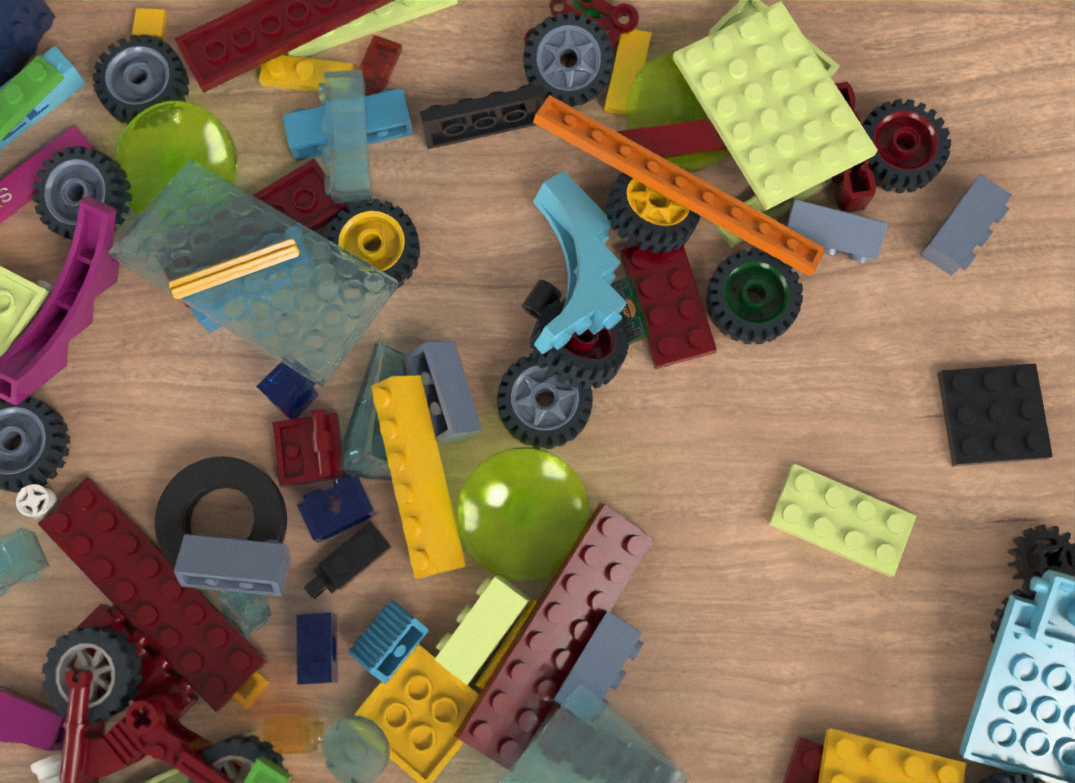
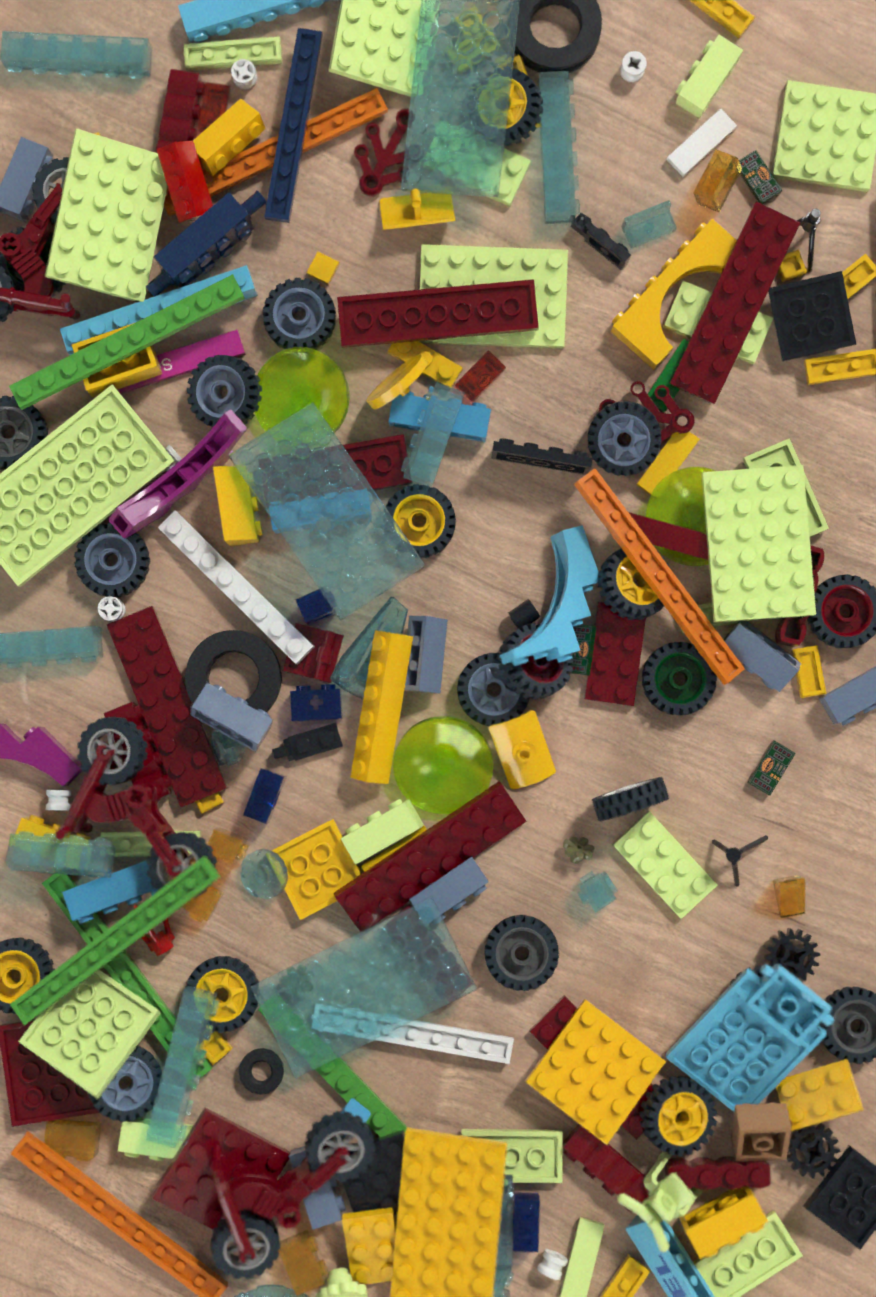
camera: 30 degrees right, 10 degrees up
(146, 316) = (236, 507): none -> yellow slope
(184, 411) = (236, 587): none -> white plate
(233, 268) = (313, 509): yellow axle -> none
(281, 98) = (397, 382): none -> yellow piece
(388, 641) = (314, 811): dark azure brick -> none
(610, 455) = (522, 750): none -> yellow shield
(732, 546) = (578, 849): none -> olive plant
(749, 710) = (526, 972): none -> wheel
(767, 453) = (630, 799): none -> black wheel
(777, 586) = (596, 890): none -> clear light blue brick
(901, 234) = (810, 673): none -> yellow tile
(908, 353) = (771, 767): none -> tile
(922, 467) = (735, 854): none -> black plant
(994, 415) = (810, 838): black plate -> none
(1007, 489) = (790, 895): none -> clear yellow slope

